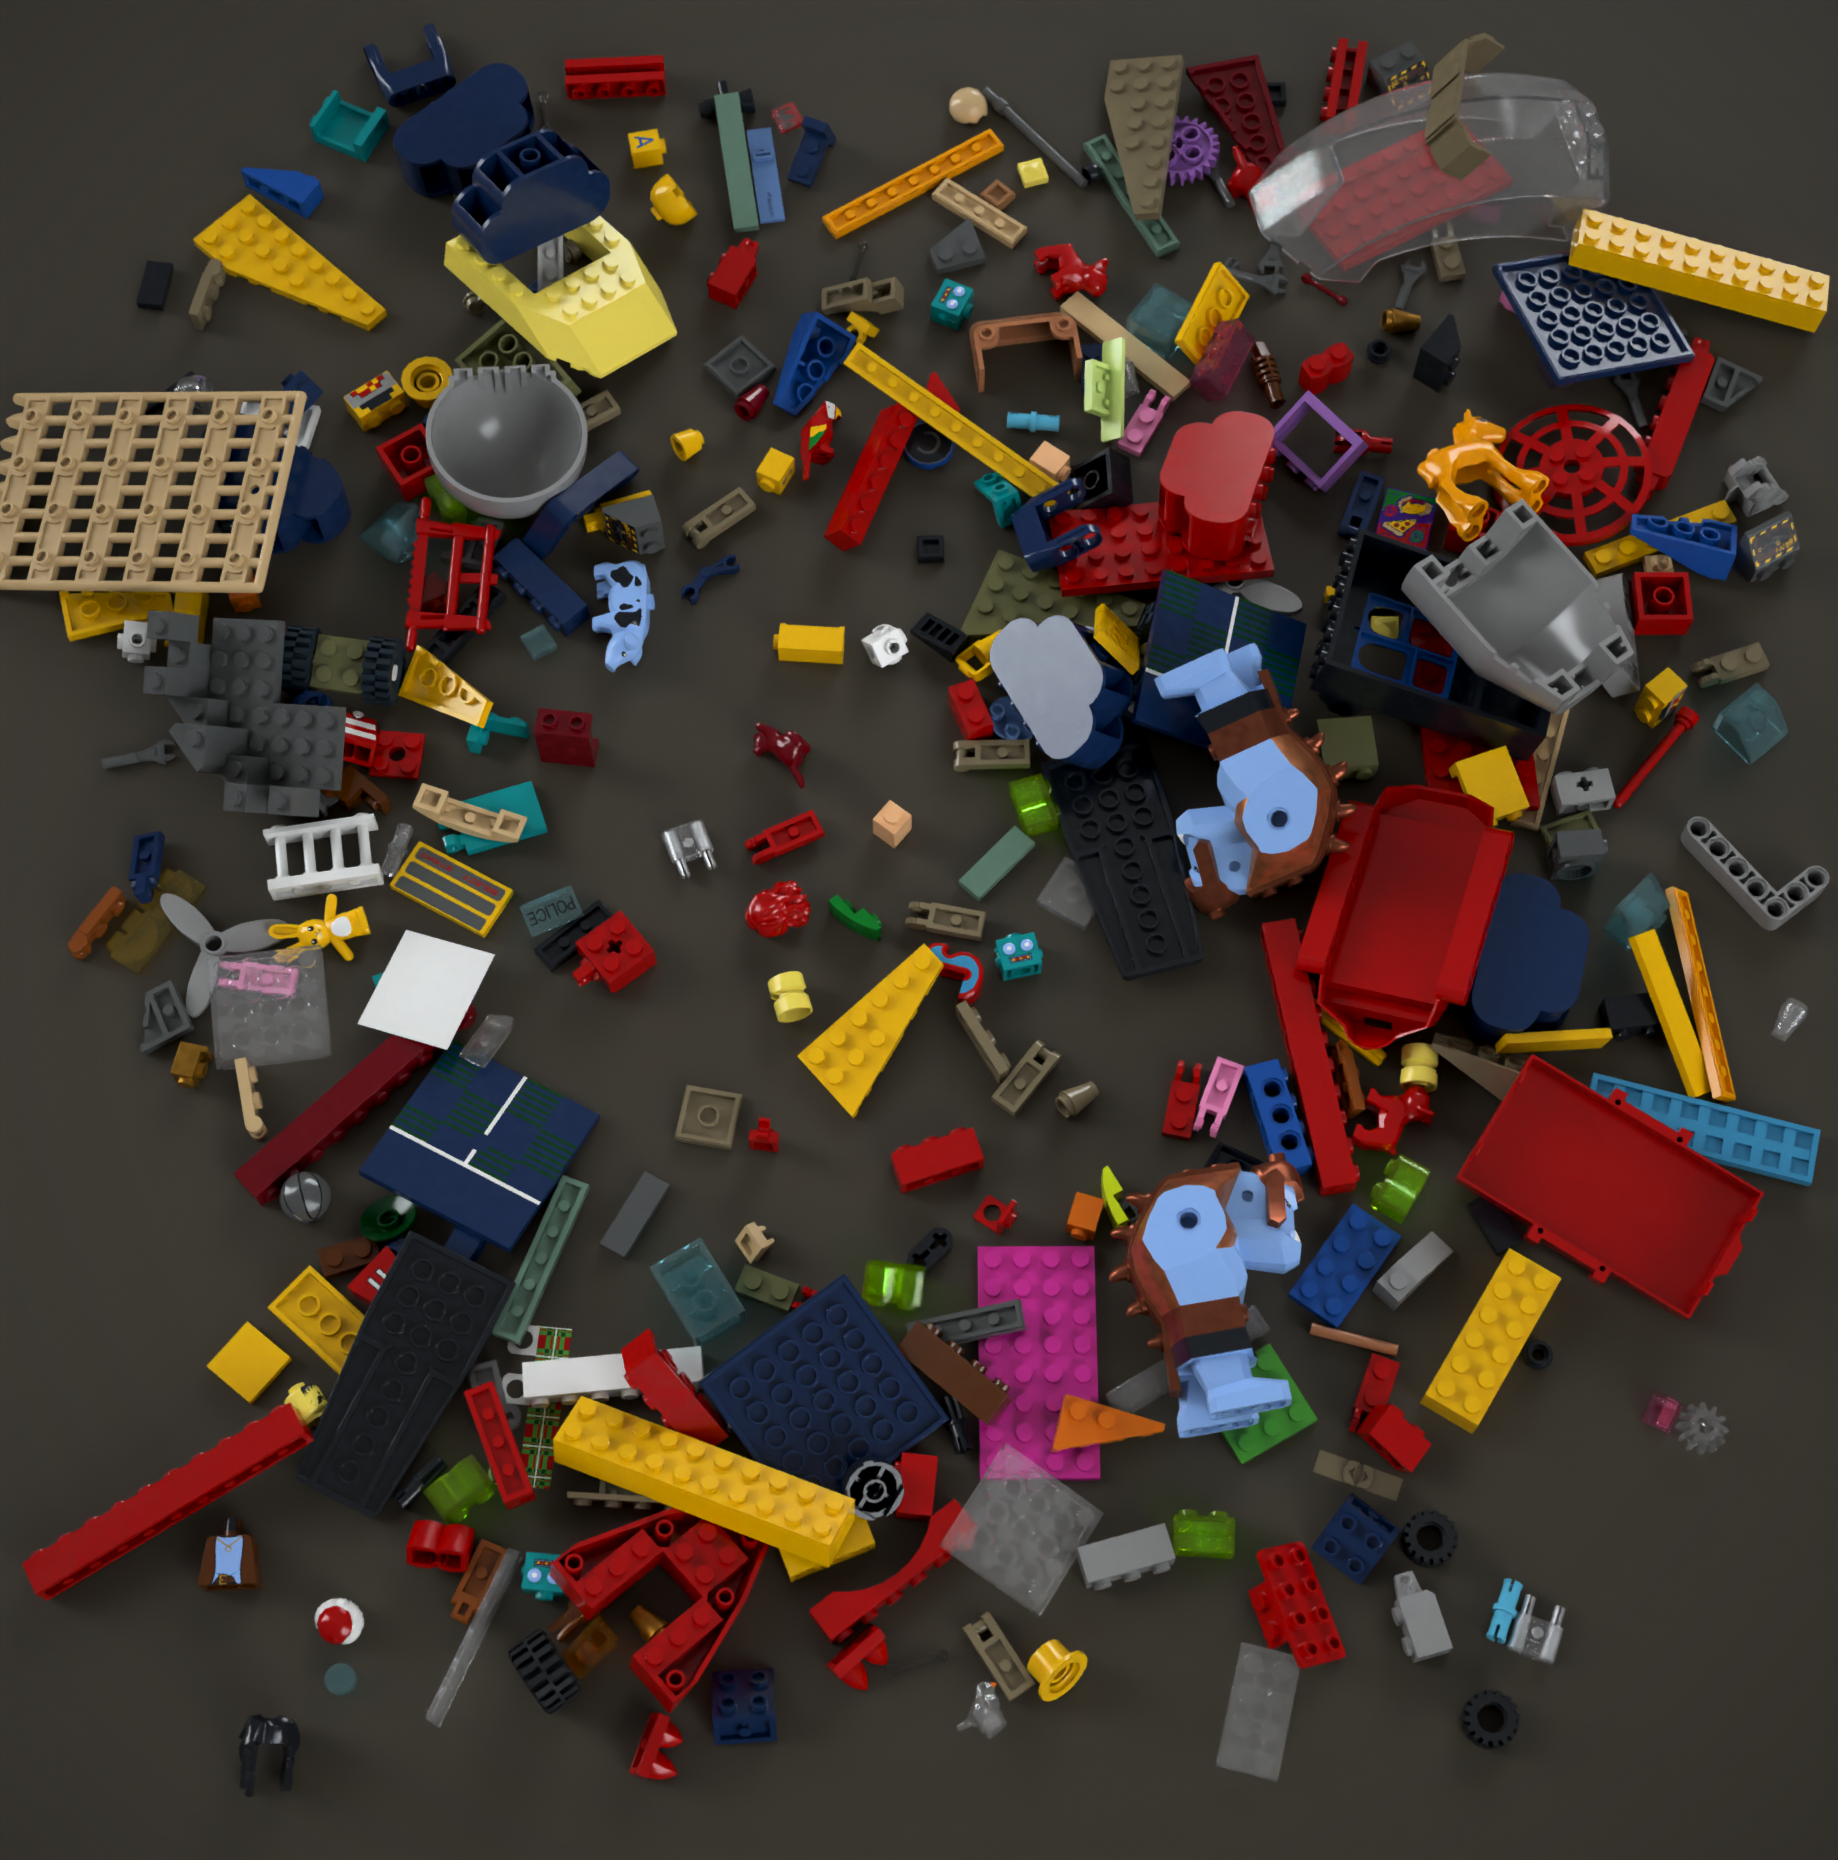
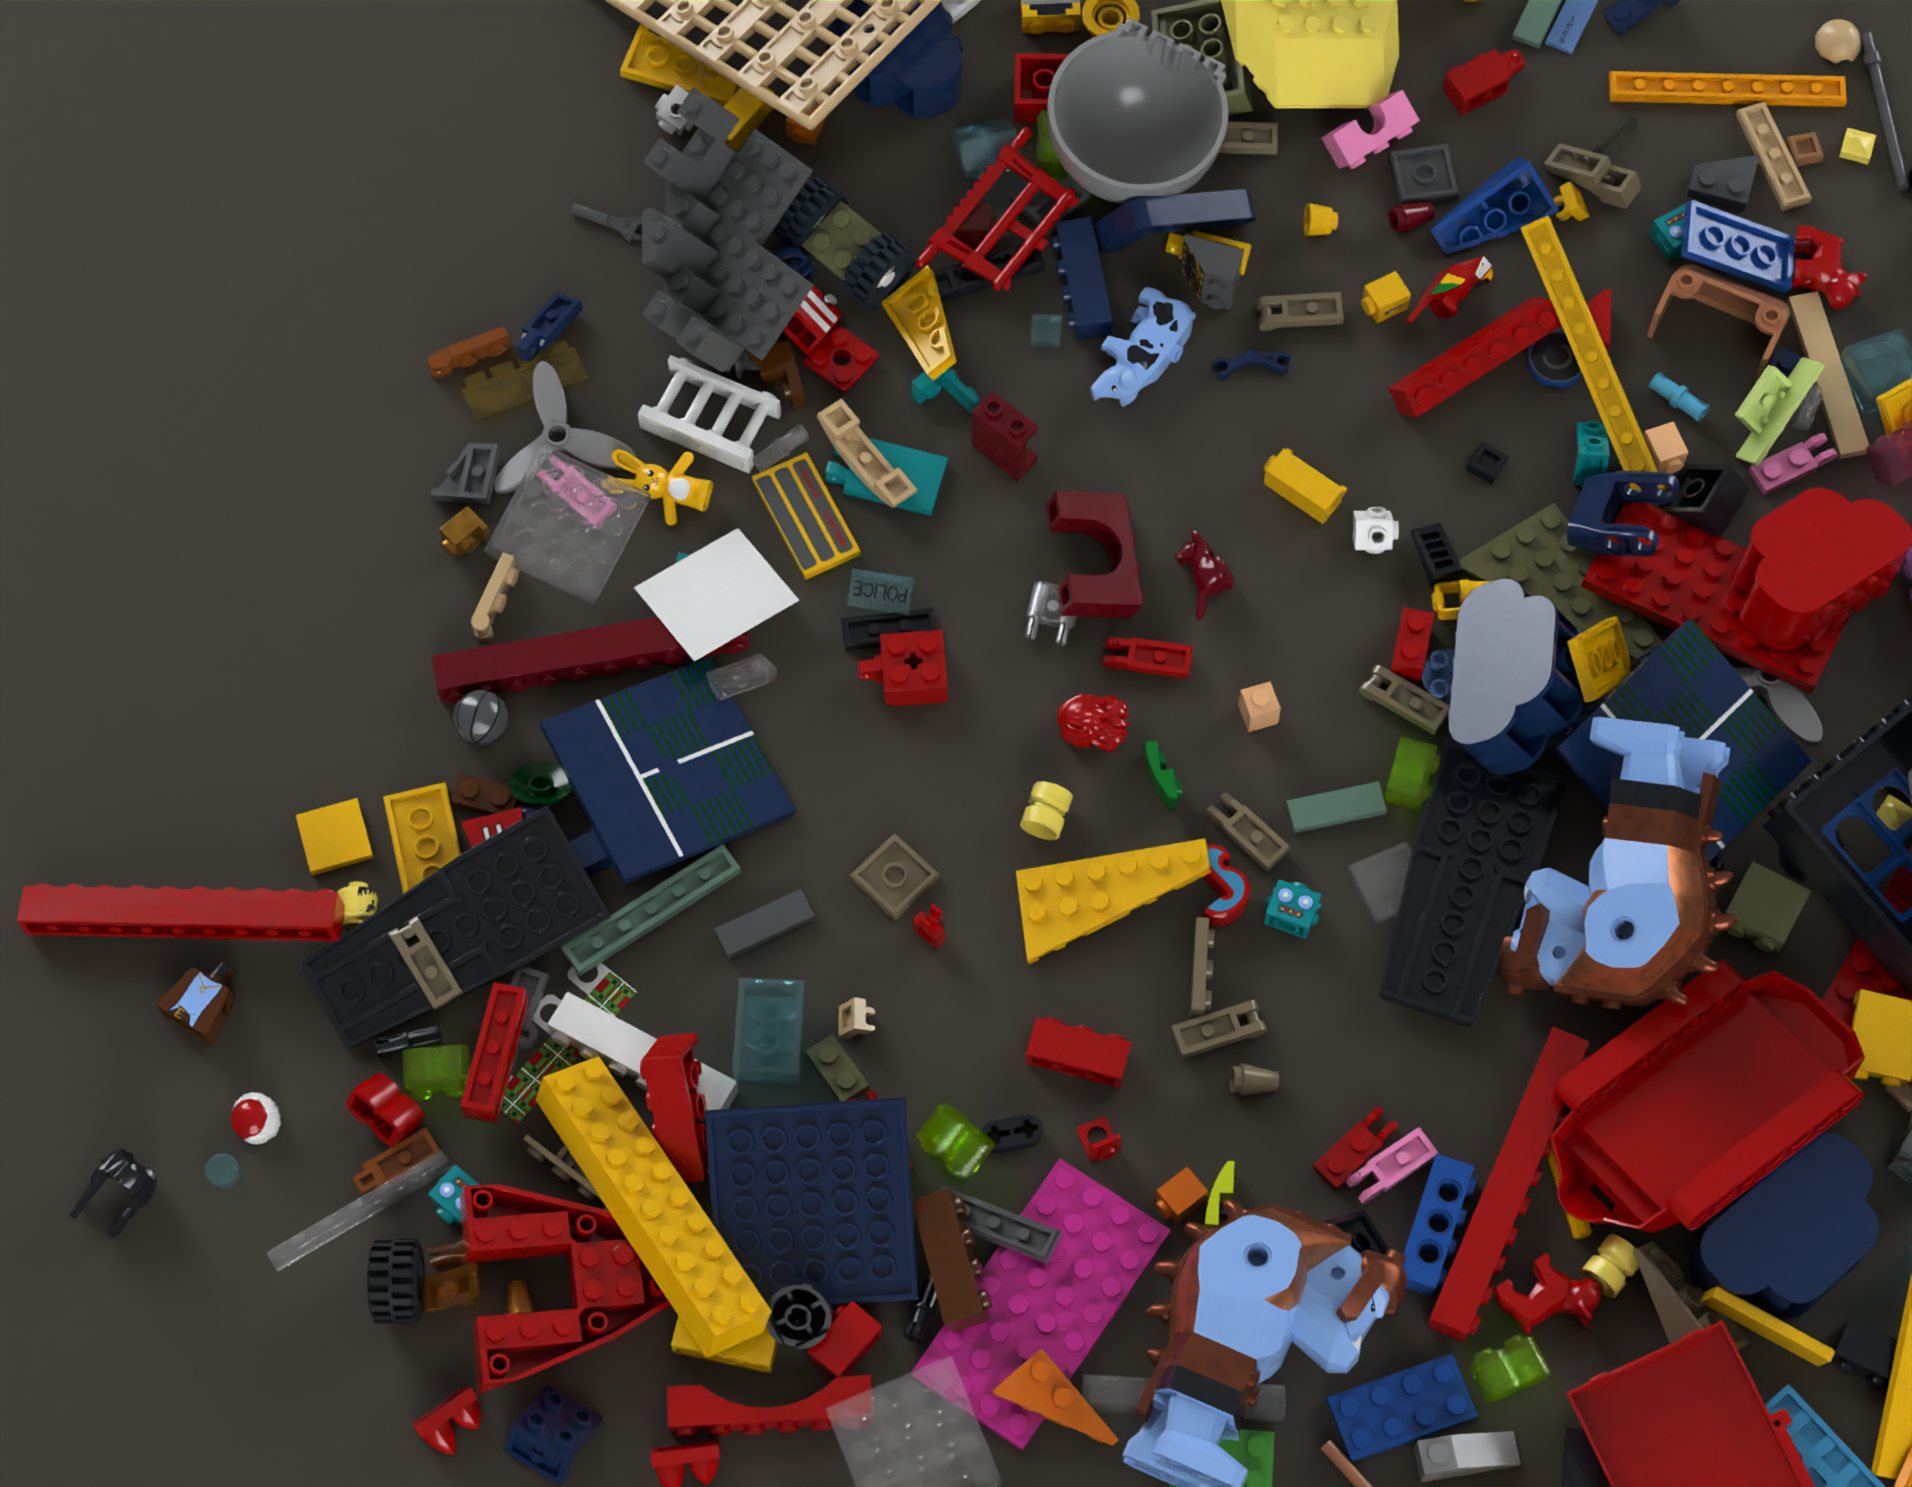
camera: 35 degrees right, 0 degrees up
(397, 1412) = (426, 964): none -> dark tan plate
(685, 755) = (1108, 521): none -> dark red arch
(690, 339) = (1391, 118): none -> bright pink arch
(1002, 289) = (1738, 246): none -> blue plate
(1347, 1077) = (1531, 1231): dark orange hinge -> none

